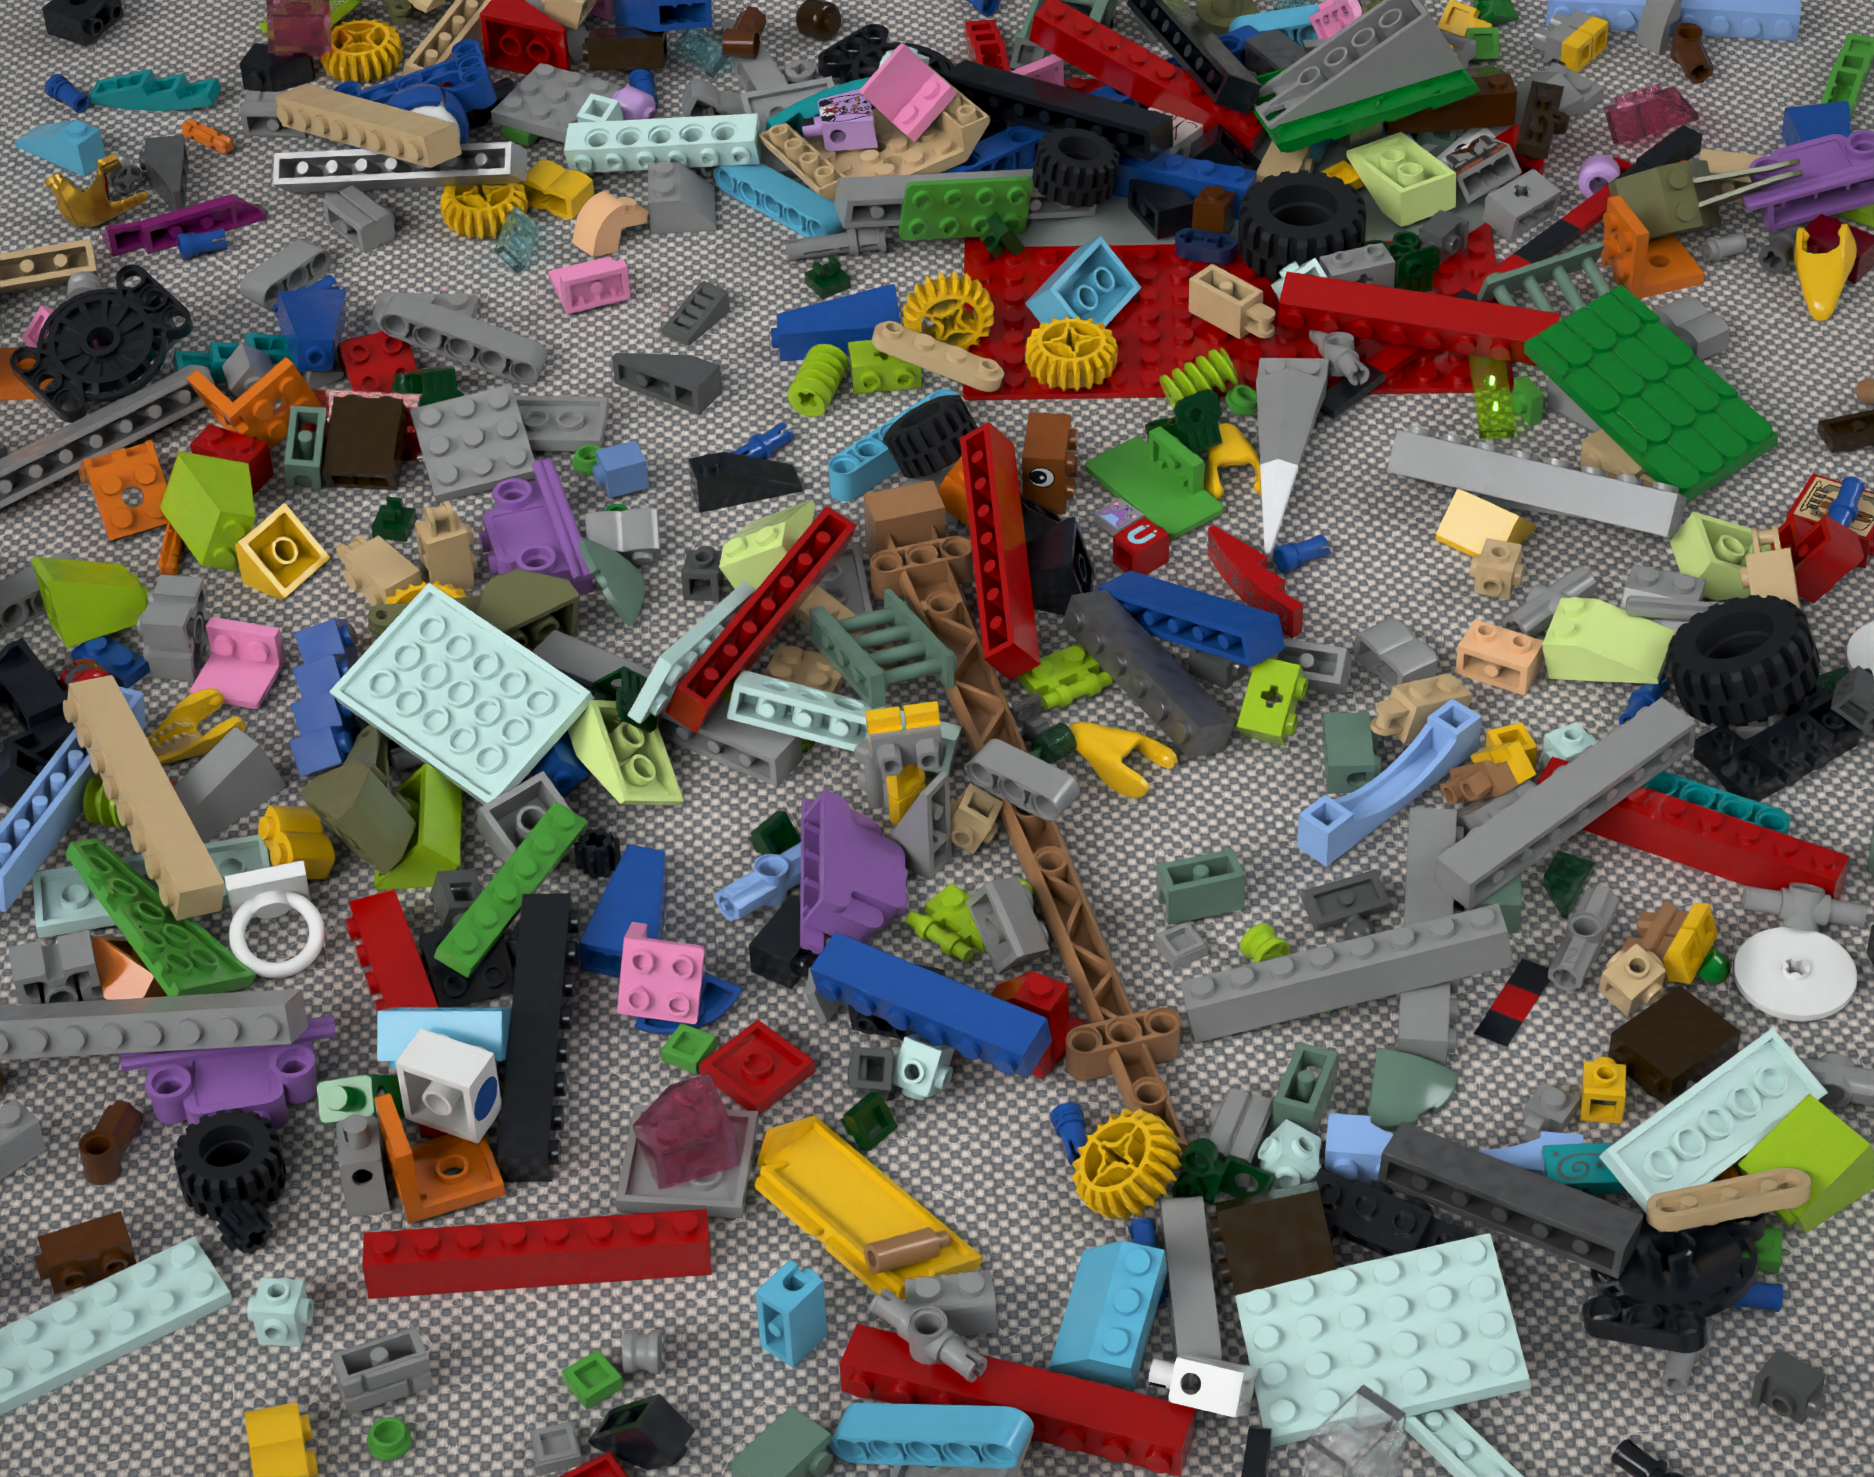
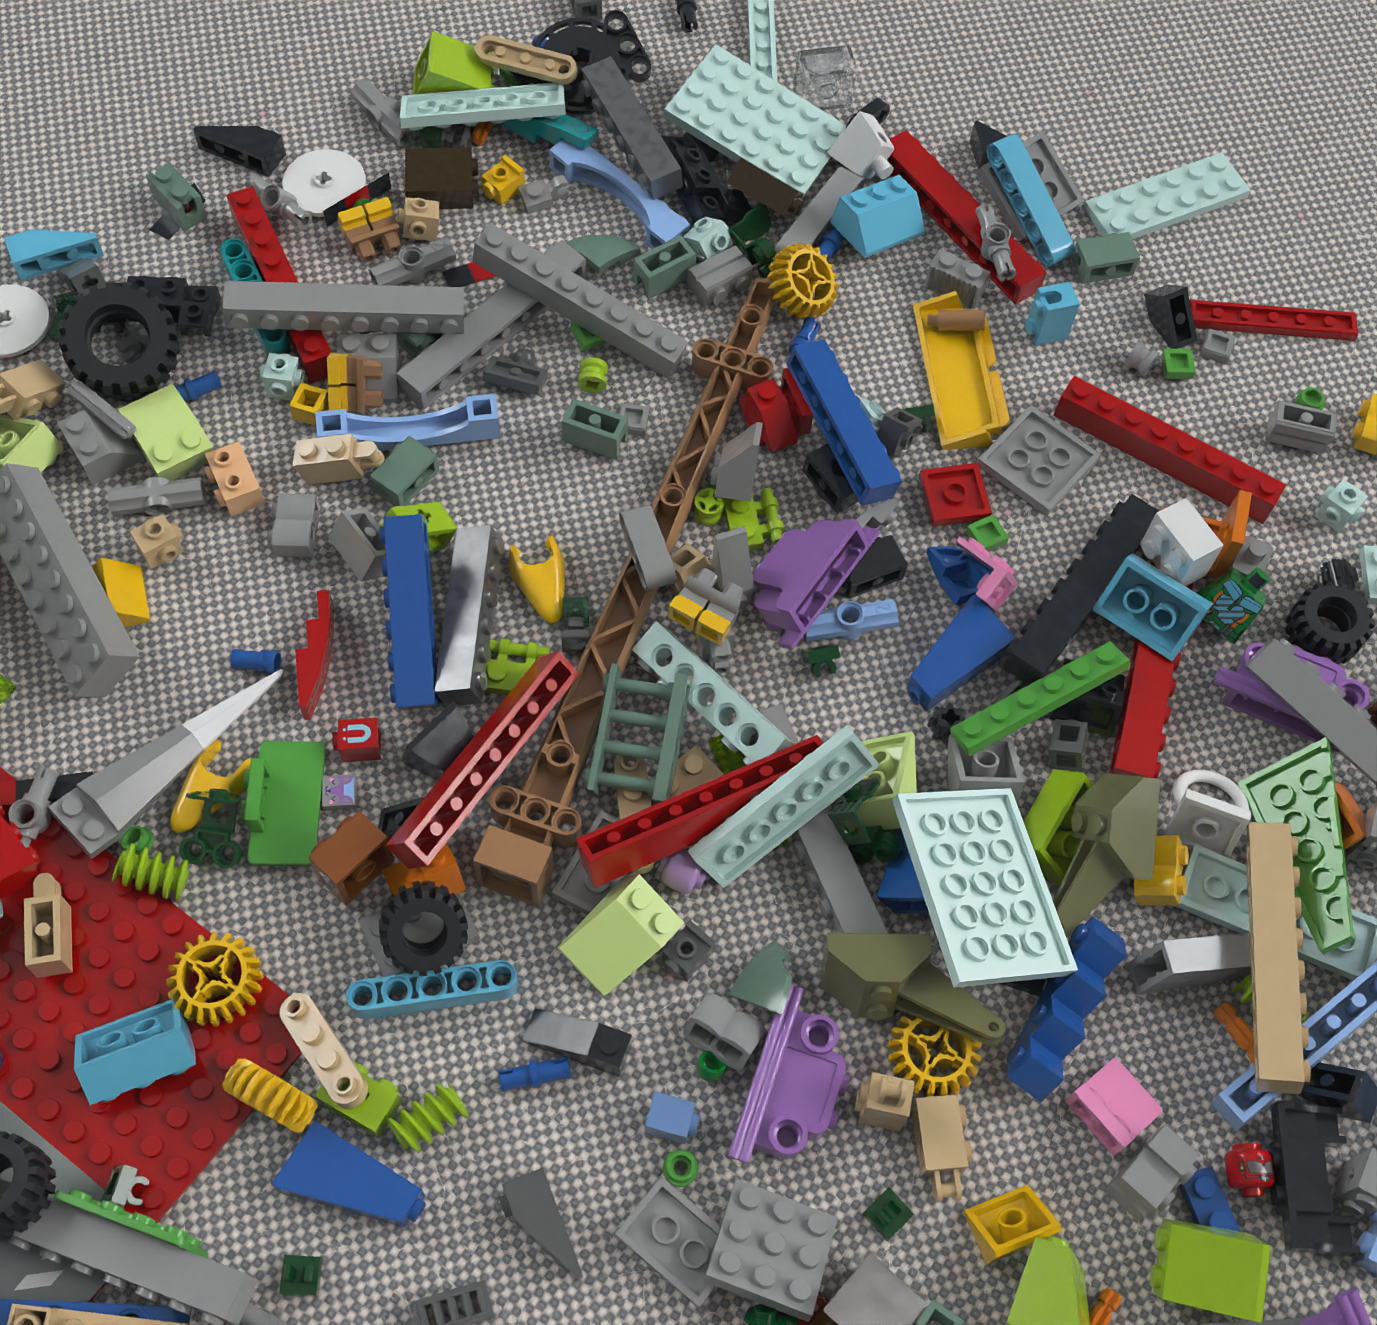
camera: 150 degrees left, 20 degrees up
(178, 734) = (1191, 1059): yellow animal -> none
(687, 1133) = (1041, 451): clear pink slope -> none

